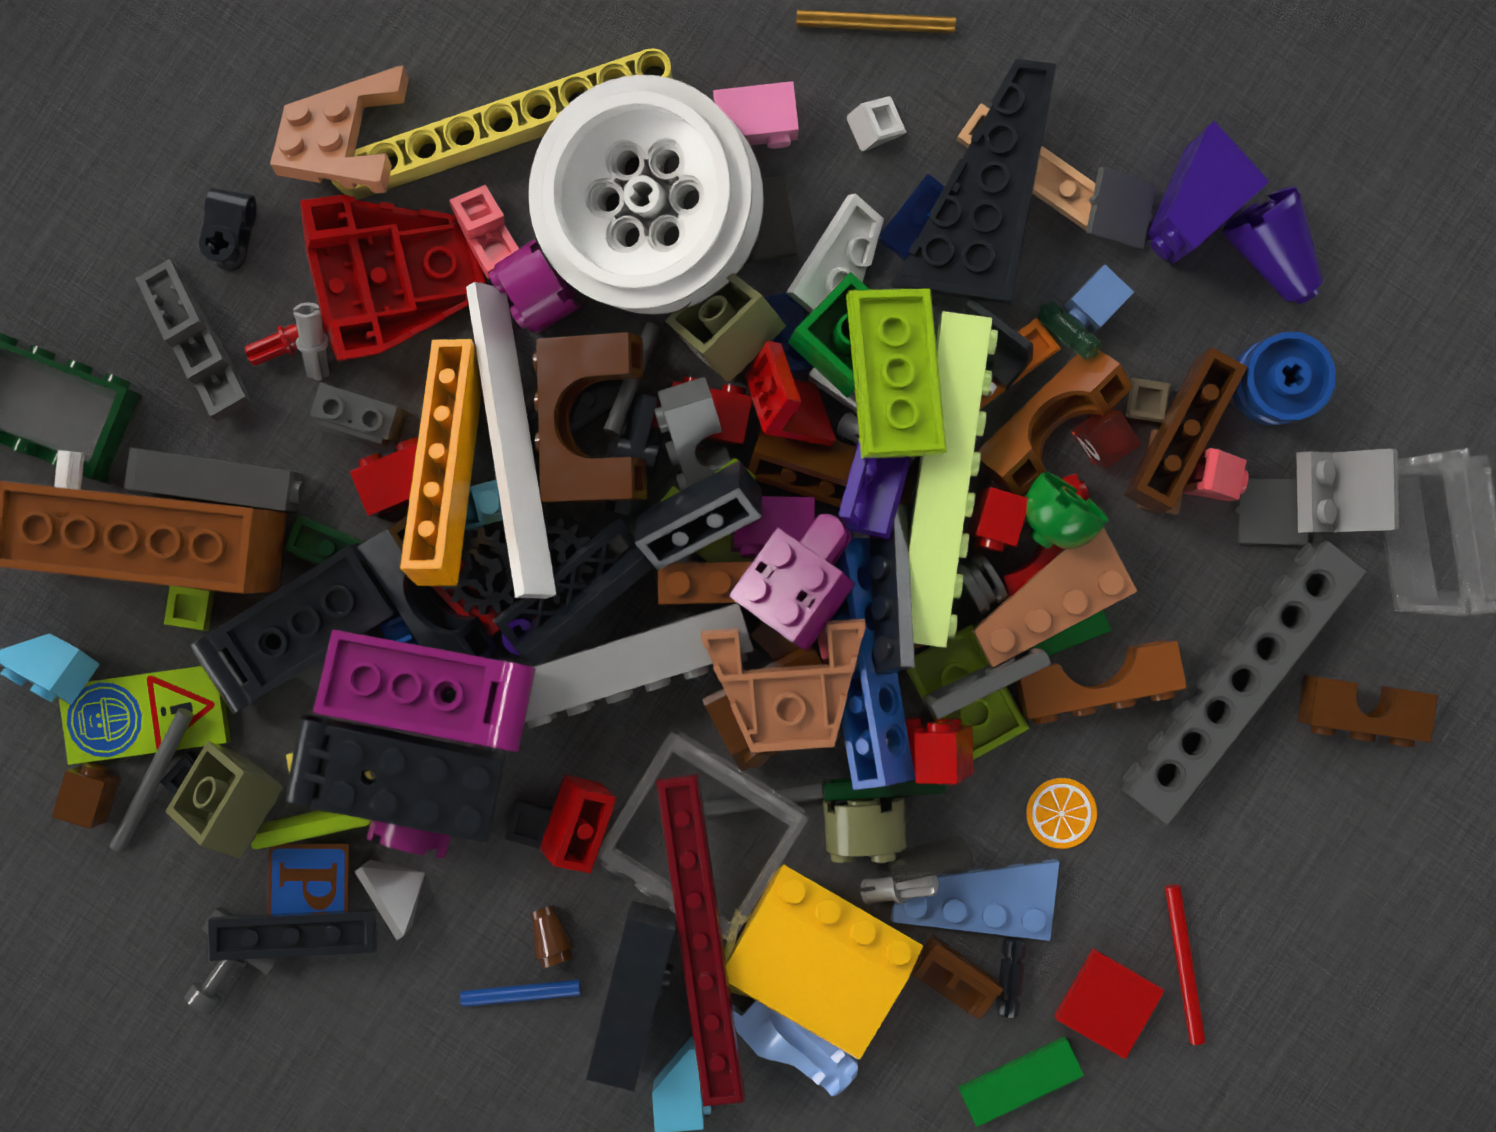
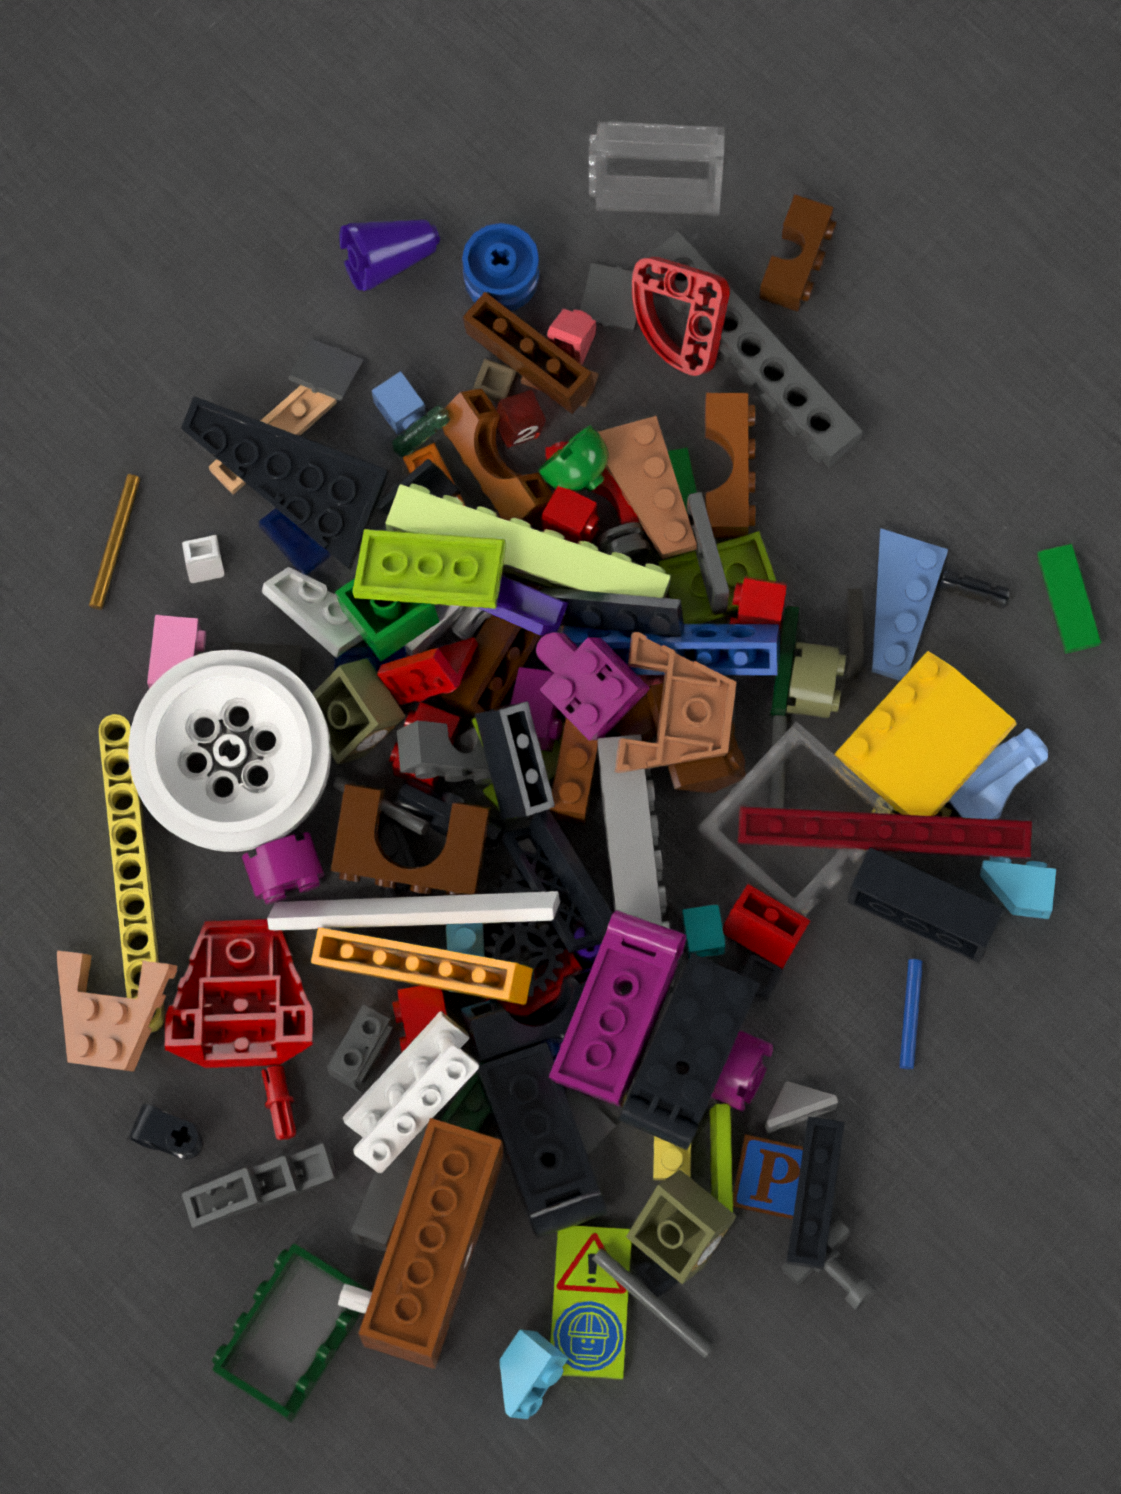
camera: 80 degrees left, 15 degrees down
(86, 795) = (653, 1363): reddish brown brick -> none
(189, 607) = (501, 1237): lime plate -> none
(312, 340) = (287, 1071): light grey axle -> none
(315, 461) = (410, 1092): none -> white fence
(483, 227) = (221, 909): coral slope -> none
(550, 938) = (867, 975): reddish brown cone -> none
(560, 756) = (703, 931): none -> teal panel
(886, 890) = (875, 663): light grey axle -> none
(956, 977) = (966, 633): reddish brown hinge -> none
(1061, 813) = (839, 520): light orange sticker -> none
(1109, 1003) = (1013, 511): red tile -> none
(1185, 964) = (991, 442): red bar -> none
(1203, 193) = (330, 301): dark purple slope -> none
(1291, 607) = (695, 294): none -> red beam
(1347, 491) = (607, 233): light grey bracket -> none

